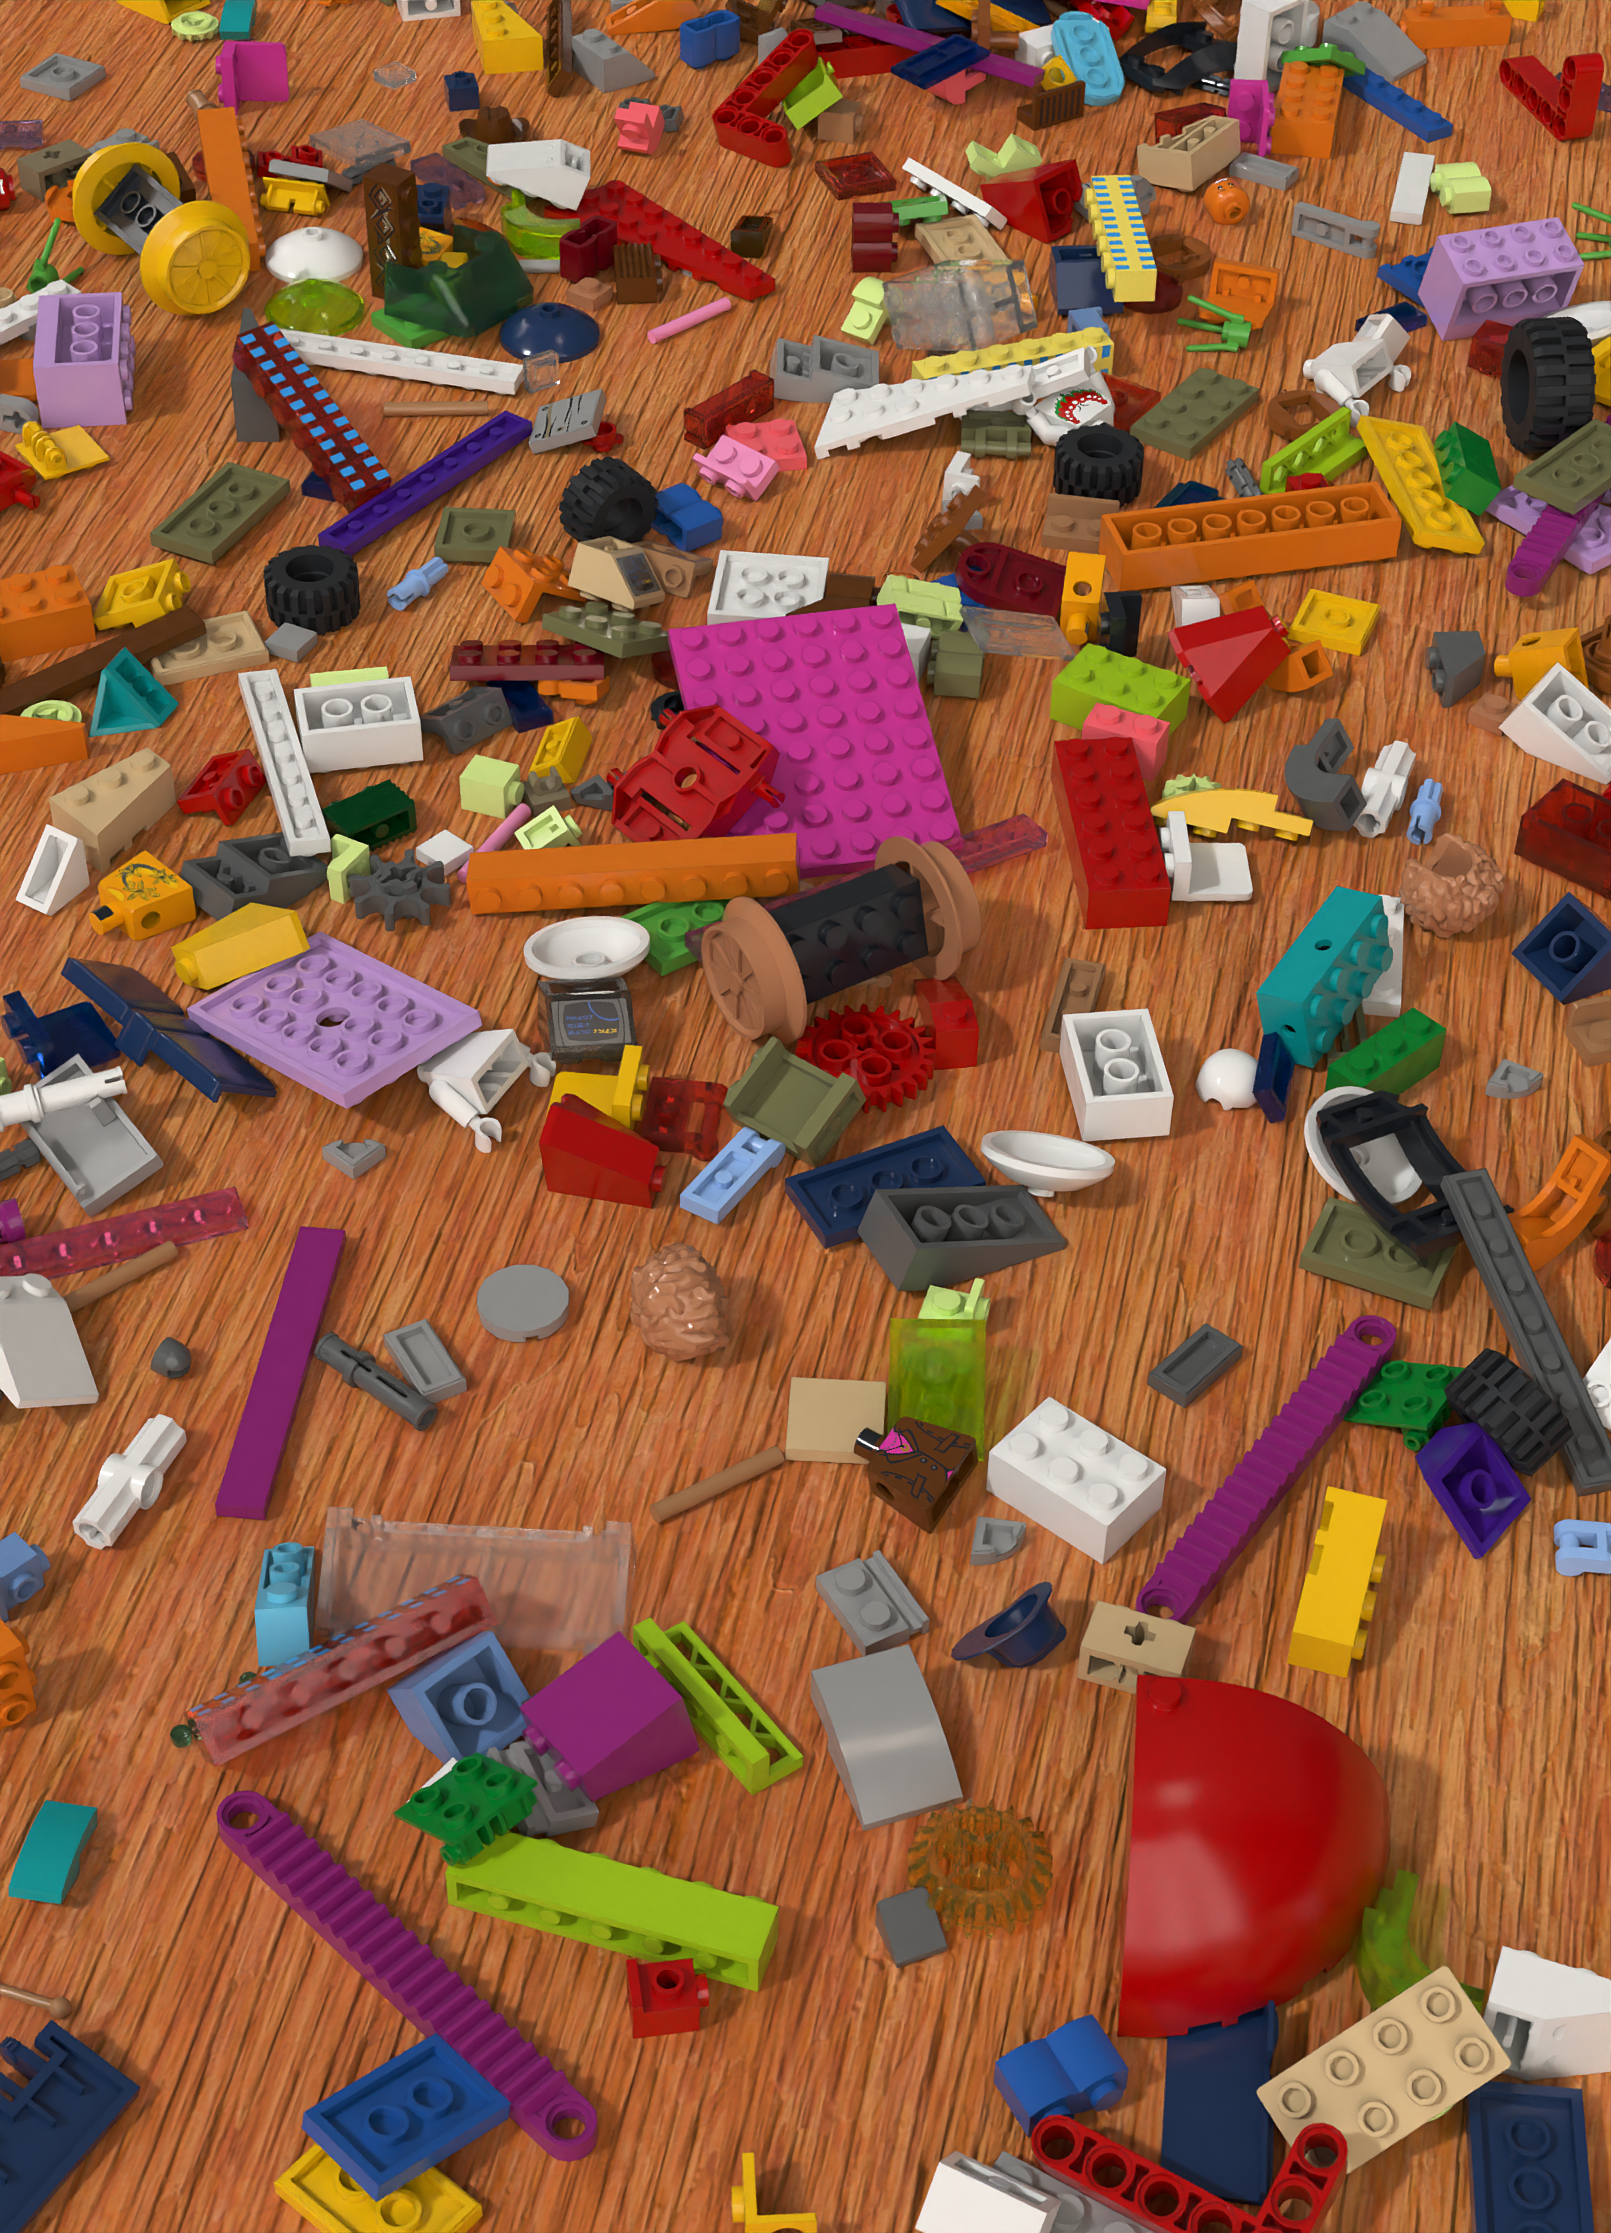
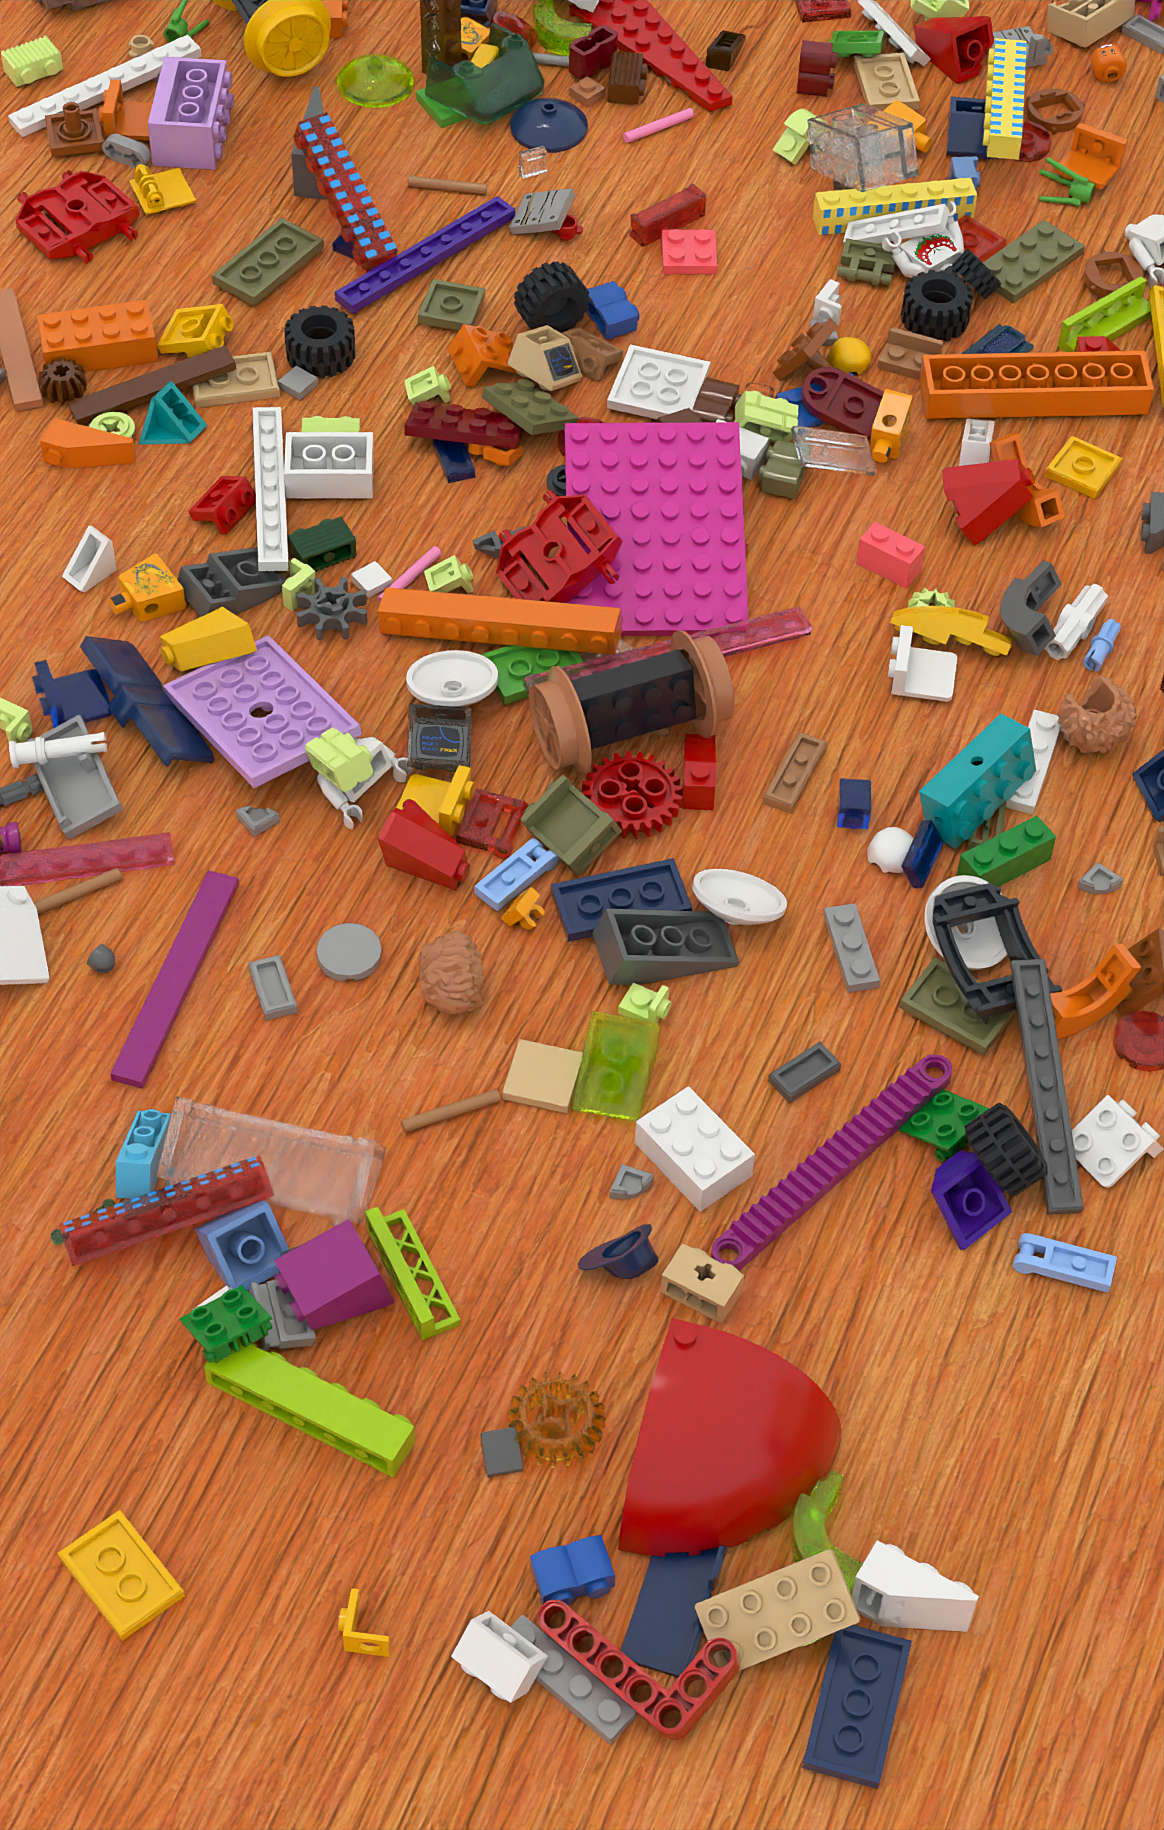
camera: 10 degrees right, 10 degrees up
(115, 805) = (143, 510): tan wedge -> none
(129, 1482) = (57, 1048): white piece -> none
(314, 254) = (384, 30): white dish -> none
(361, 1371) = (227, 988): dark grey pin -> none
(405, 2116) = (146, 1525): blue plate -> none
(406, 362) = (422, 137): white plate -> none
(407, 1972) = (169, 1427): magenta gear -> none
(417, 583) = (400, 343): light blue axle -> none
(462, 1053) = (340, 759): none -> yellowish green brick
(465, 624) = (427, 385): none -> yellowish green bracket
(468, 718) = (411, 467): dark grey bracket -> none
(491, 787) = (415, 529): yellowish green brick -> none
(545, 792) = (454, 540): dark tan tile -> none
(564, 748) = (474, 505): yellow slope -> none
(665, 1997) = (329, 1473): red brick -> none
(737, 468) = (662, 271): bright pink bracket -> none
(753, 1215) = (520, 910): none -> light orange tile
(821, 369) = (749, 187): light grey slope -> none
(872, 1604) = (534, 1216): light grey plate -> none
(885, 1737) = (517, 1316): light grey slope -> none
(915, 403) = (804, 232): white wing -> none
(917, 1468) = (587, 1123): reddish brown torso -> none
(1006, 529) = (850, 355): none -> yellow hair
(1110, 834) = (858, 632): red brick -> none
(1116, 1075) = (806, 836): white brick -> none
(1119, 681) = (899, 508): lime brick -> none
(1120, 622) = (910, 459): black bracket -> none
(1140, 423) = (976, 274): none -> black tyre
(1171, 1027) = (854, 803): none -> clear blue brick
(1212, 1204) = (851, 948): none -> light grey plate
(1242, 478) = (1049, 331): dark grey axle -> none
(1338, 1584) = (853, 1258): yellow wedge -> none

